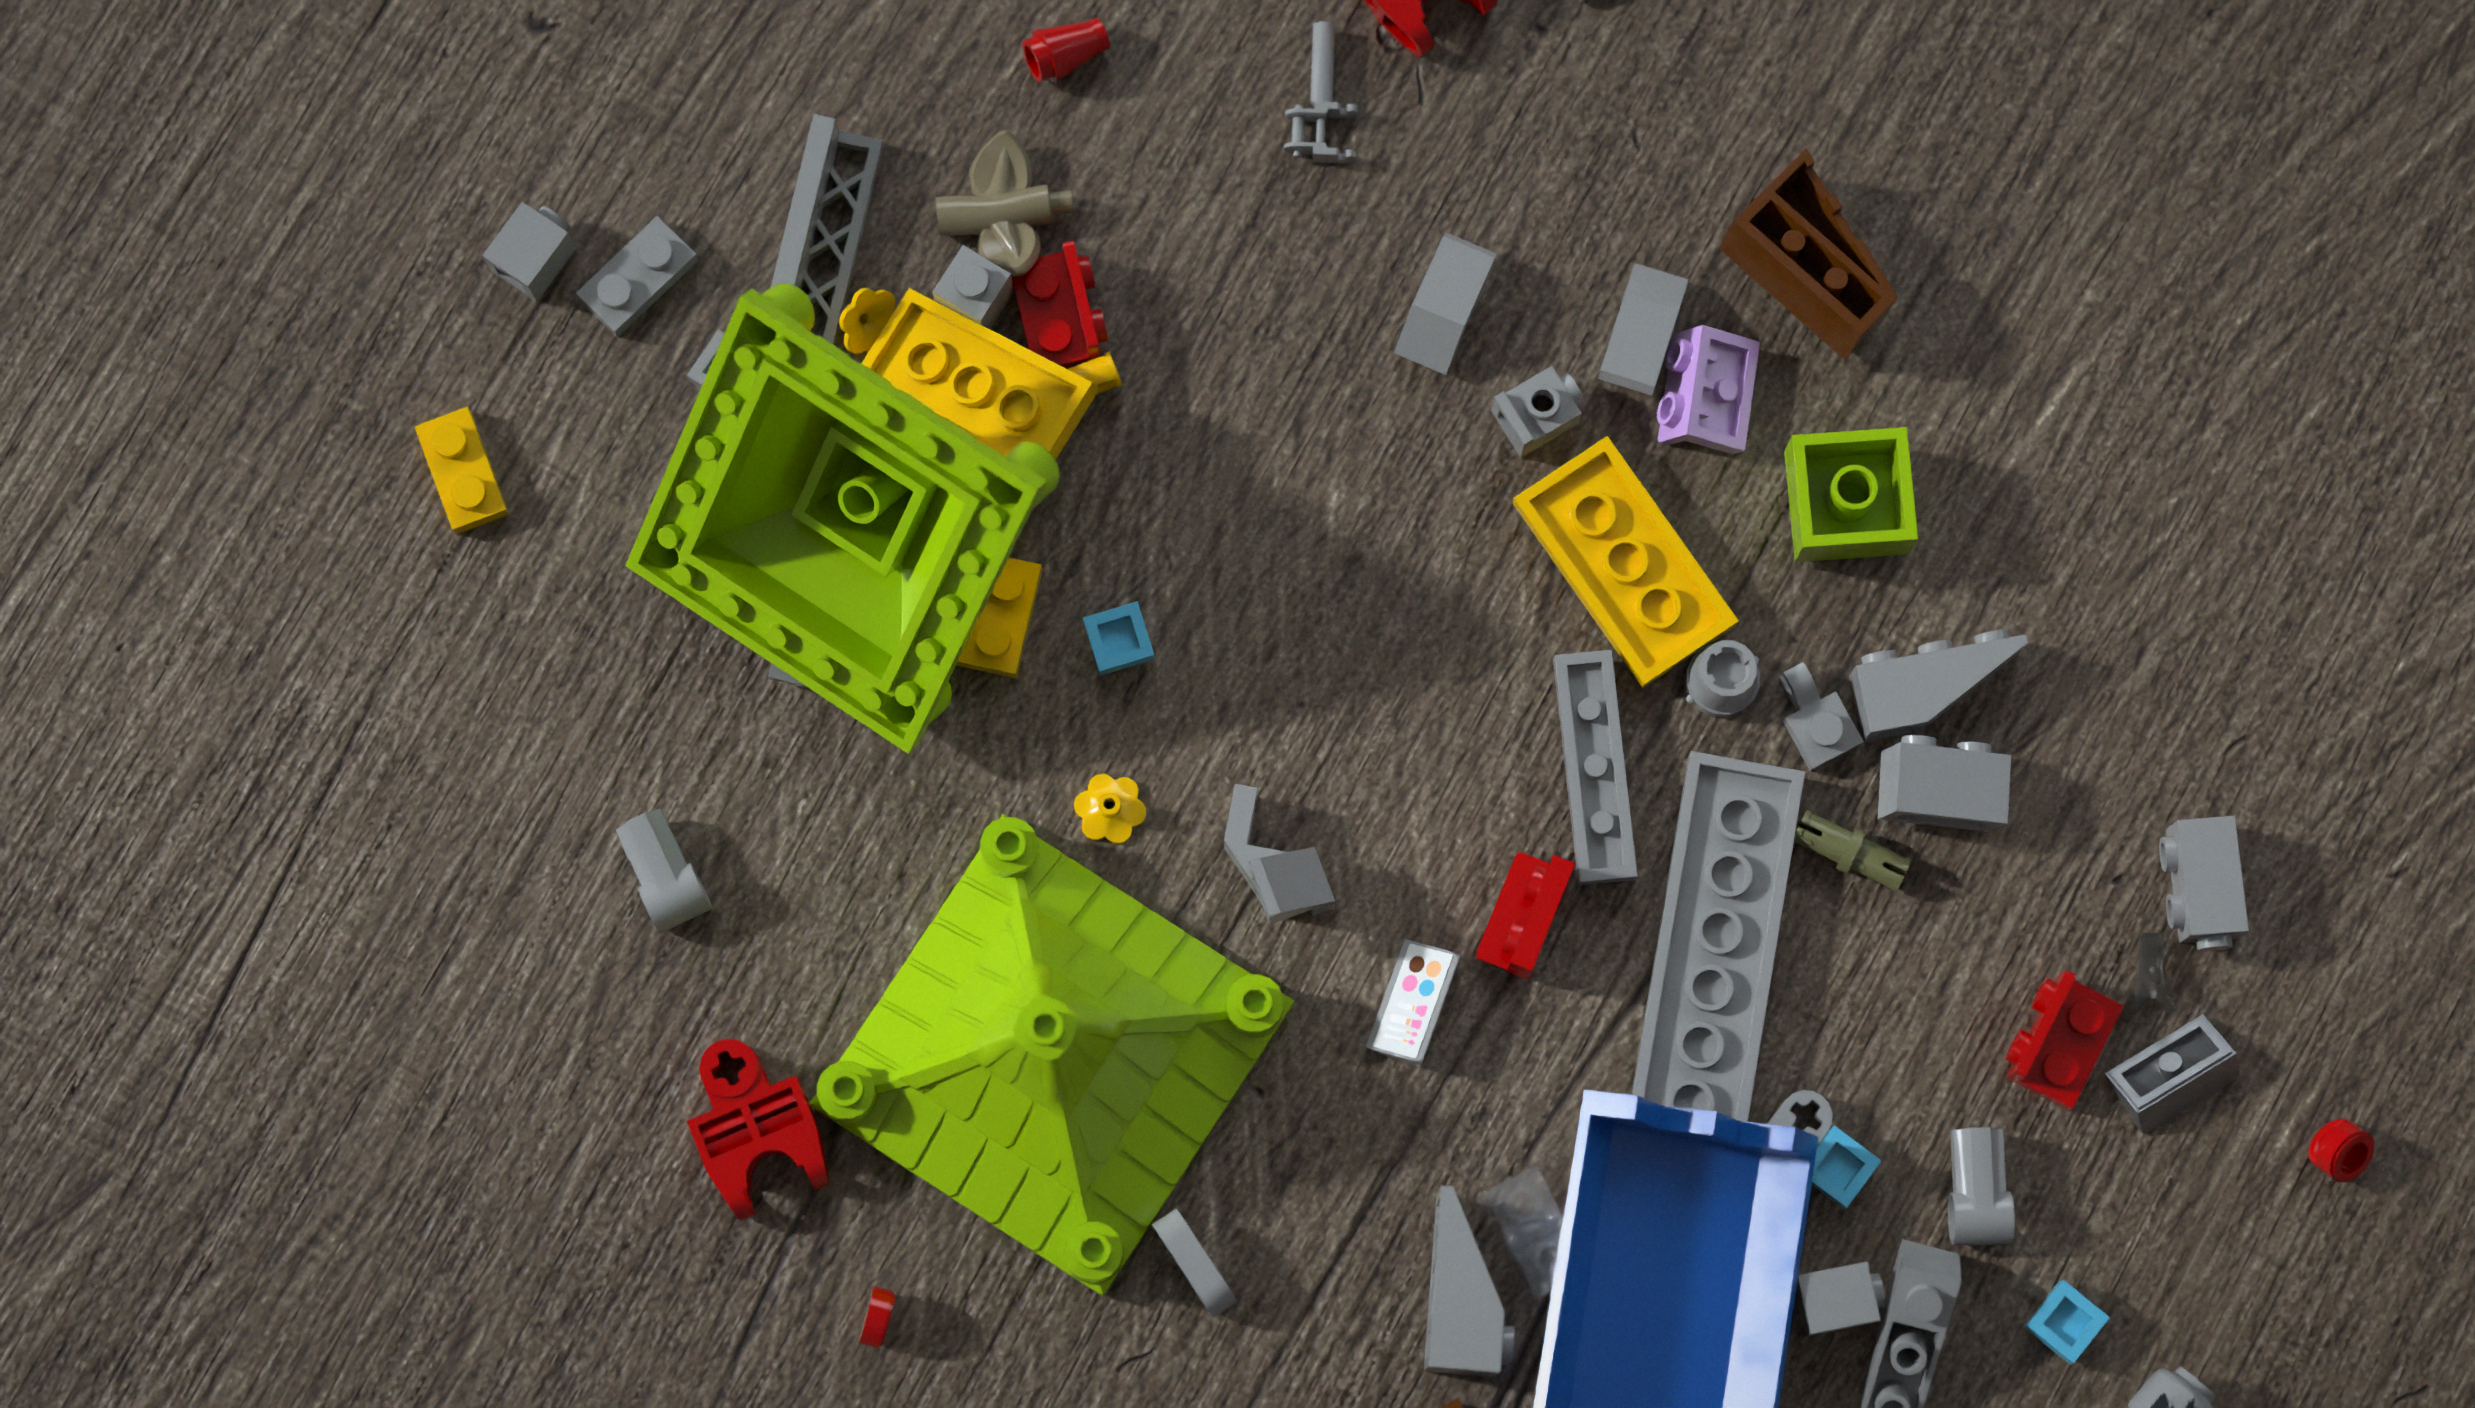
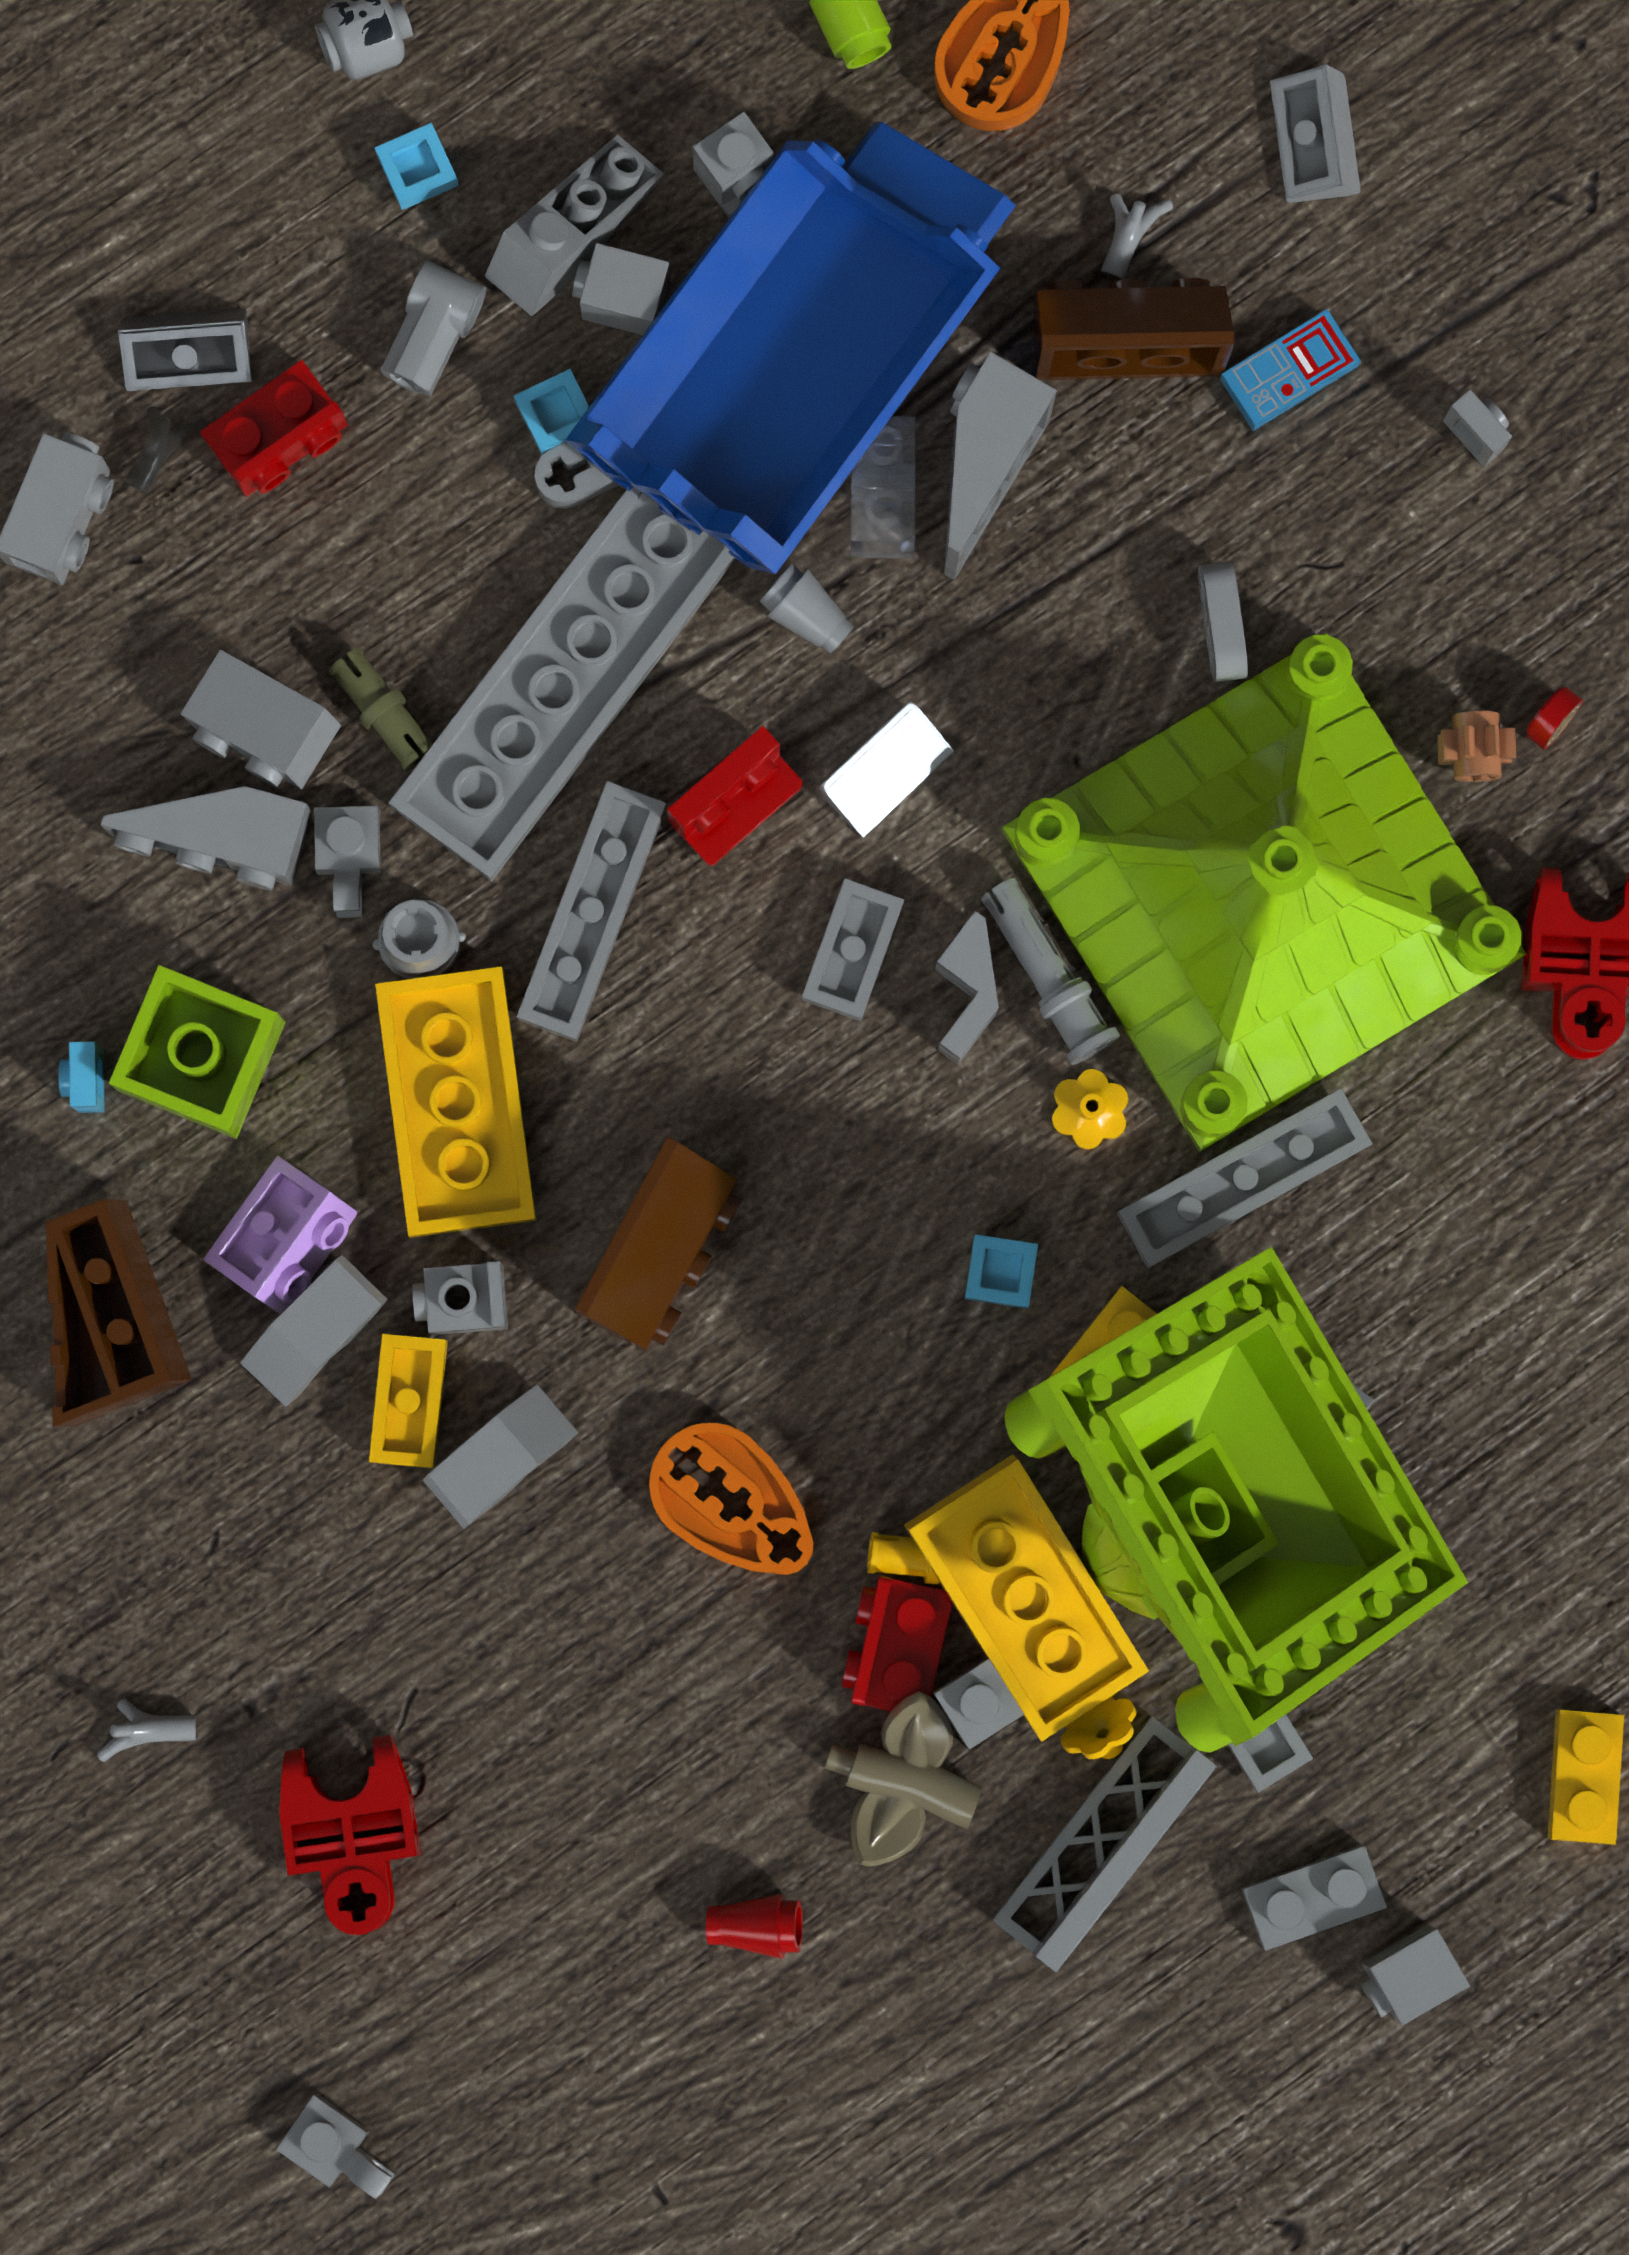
camera: 160 degrees left, 5 degrees up
(667, 882) = (1566, 1236): light grey piece -> none
(930, 1258) = (1476, 746): none -> nougat gear
(956, 808) = (1244, 1178): none -> light grey plate
(1176, 884) = (1063, 997): none -> light grey pin
(1246, 391) = (746, 1466): none -> orange piece
(1291, 884) = (954, 928): light grey slope -> none
(1322, 100) = (516, 1743): light grey piece -> none
(1367, 839) = (852, 949): none -> light grey plate
(1402, 518) = (659, 1247): none -> reddish brown slope
(1540, 311) = (408, 1401): none -> yellow plate
(1544, 1102) = (806, 609): none -> light grey cone
(1930, 436) = (83, 1077): none -> medium azure plate
(2341, 1150) = (65, 193): red tile -> none

